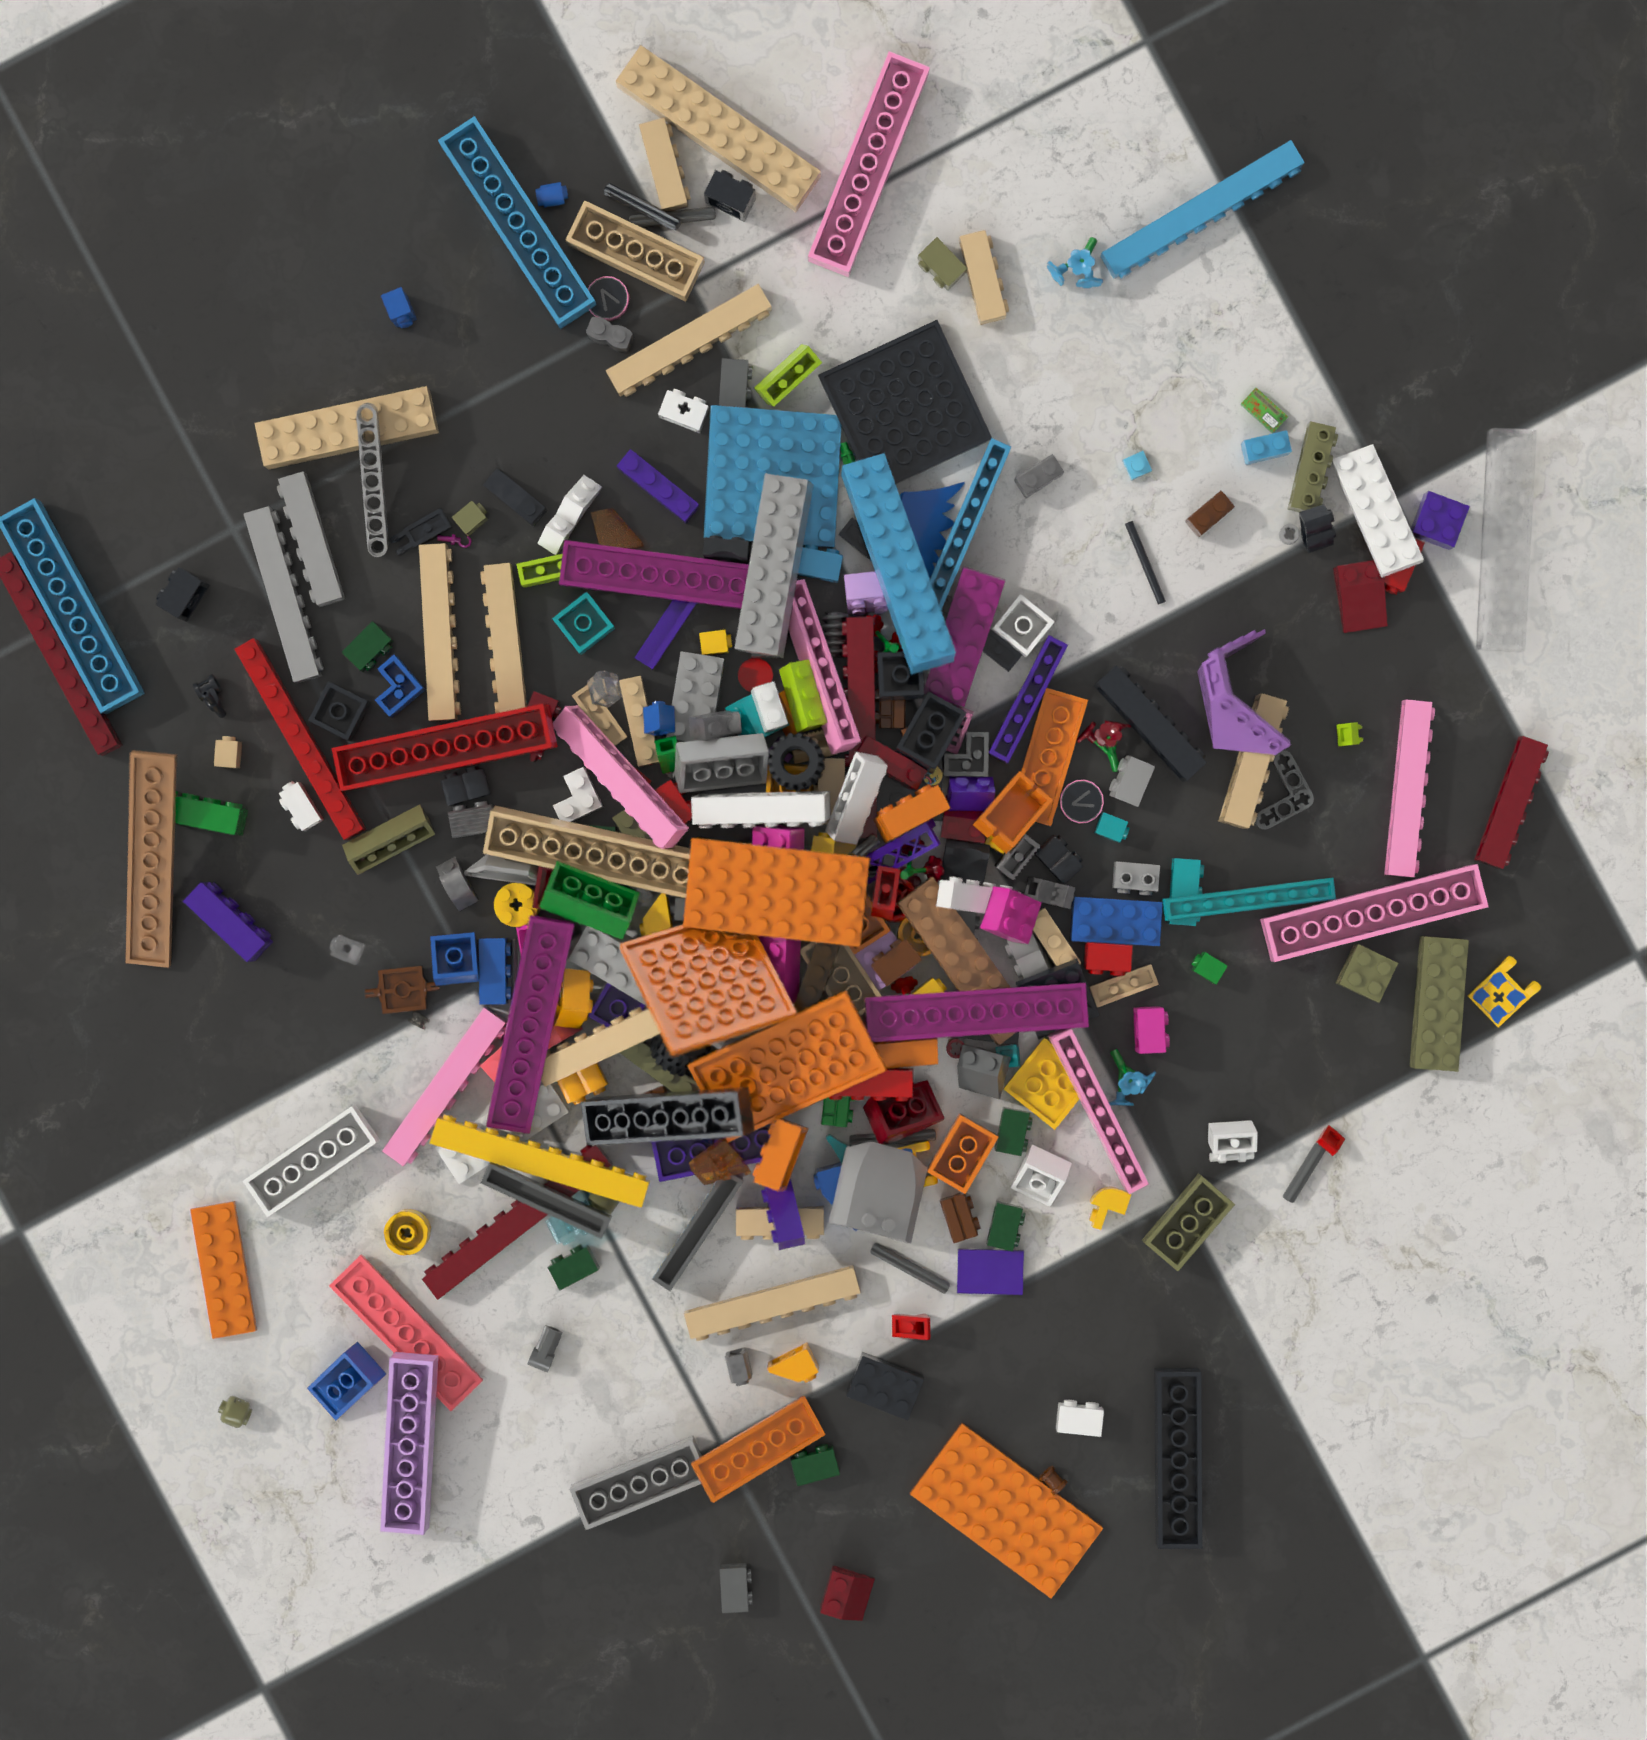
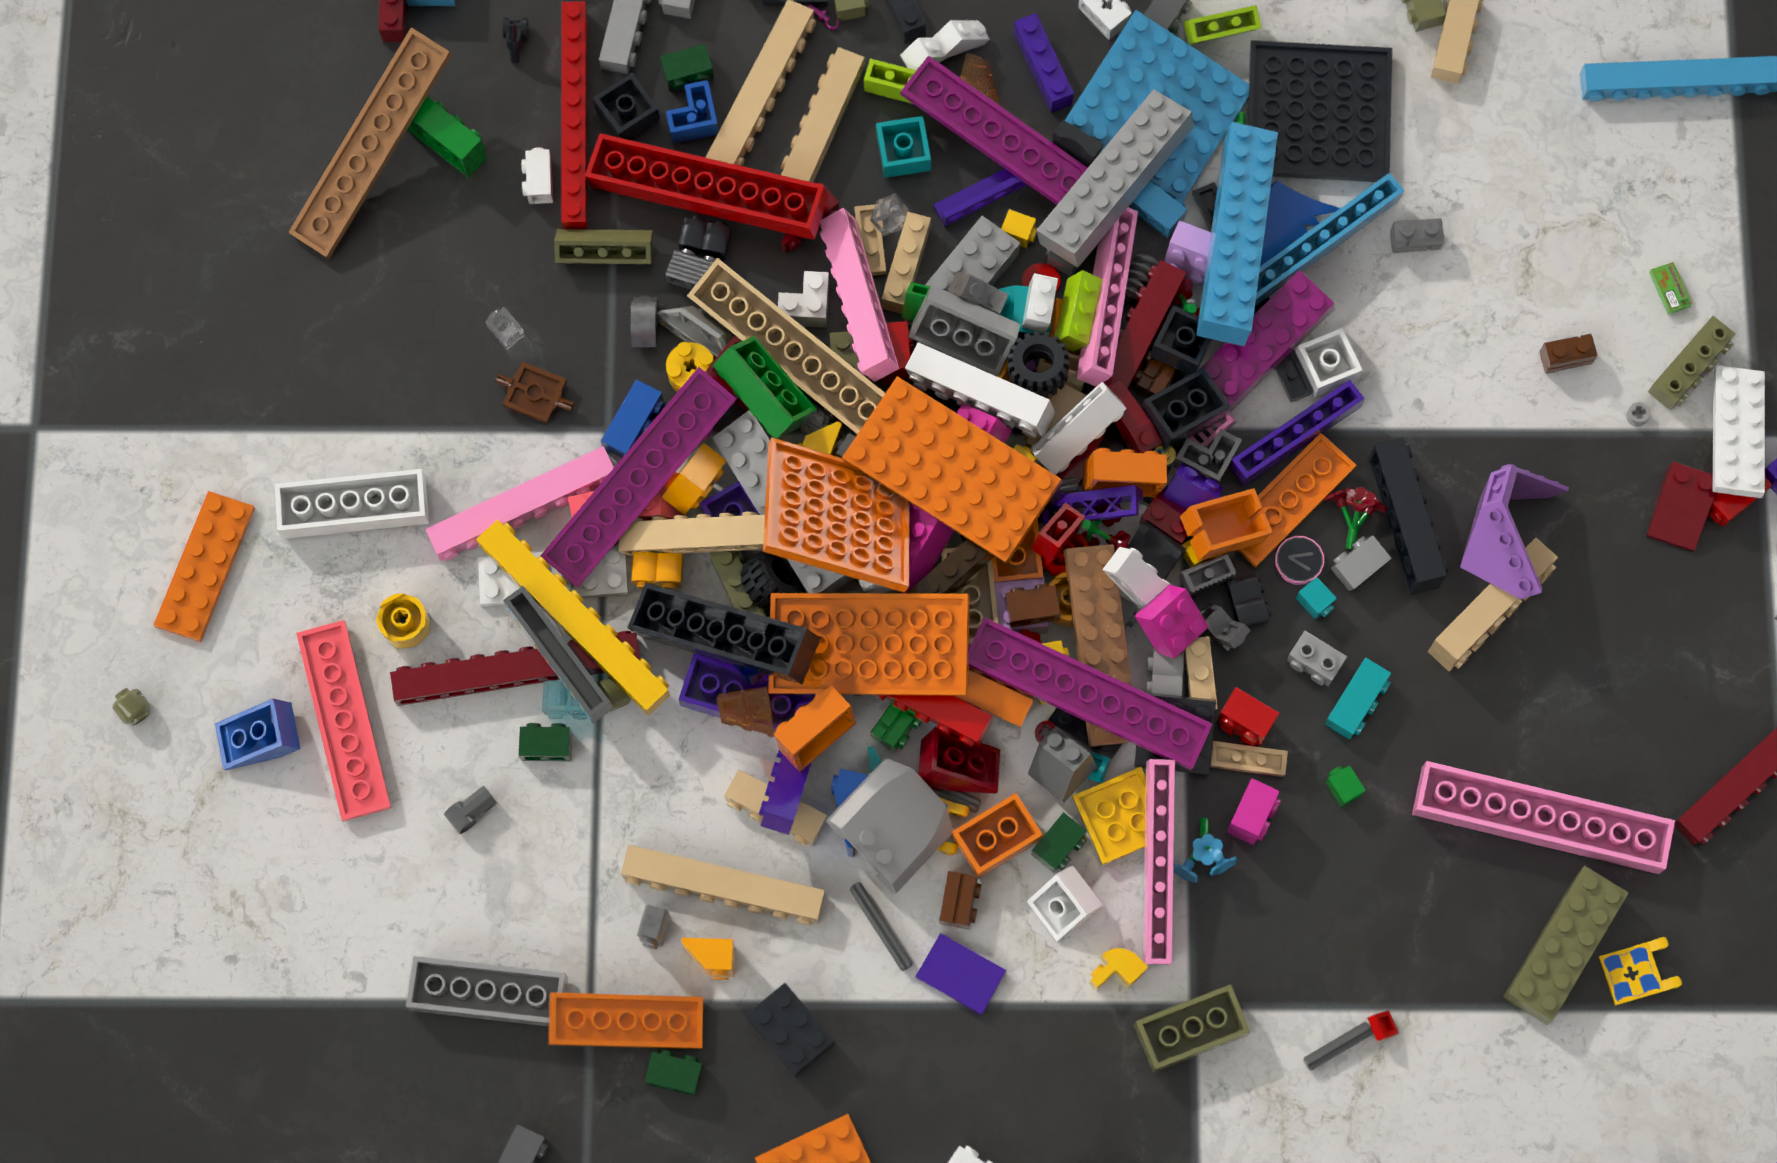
camera: 30 degrees right, 15 degrees down
(227, 752) = (499, 94): tan brick -> none
(228, 921) = (409, 240): dark purple brick -> none
(409, 1443) = (282, 825): lavender brick -> none
(419, 1020) = (533, 429): clear smoke bush -> none
(454, 959) = (601, 386): blue brick -> none
(659, 719) = (926, 264): blue brick -> none
(696, 1231) = (689, 770): dark grey brick -> none
(911, 1326) = (850, 983): red slope -> none
(1005, 1226) = (1000, 934): dark green brick -> none
(1080, 263) = (1559, 58): dark azure plant -> none
(1116, 921) = (1276, 686): blue brick -> none
(1137, 465) = (1518, 276): medium azure plate -> none
(1145, 562) = (1480, 369): black bar -> none
(1232, 1141) = (1282, 967): white brick -> none
(1249, 899) = (1418, 736): teal tile -> none
(1266, 447) = (1655, 320): dark azure brick -> none
(1293, 791) = (1519, 660): dark grey beam -> none
(1317, 528) = (1669, 417): black brick -> none
(1348, 734) = (1603, 632): lime tile -> none
(1366, 973) = (1505, 875): olive brick -> none
(1408, 788) = (1639, 715): bright pink brick -> none

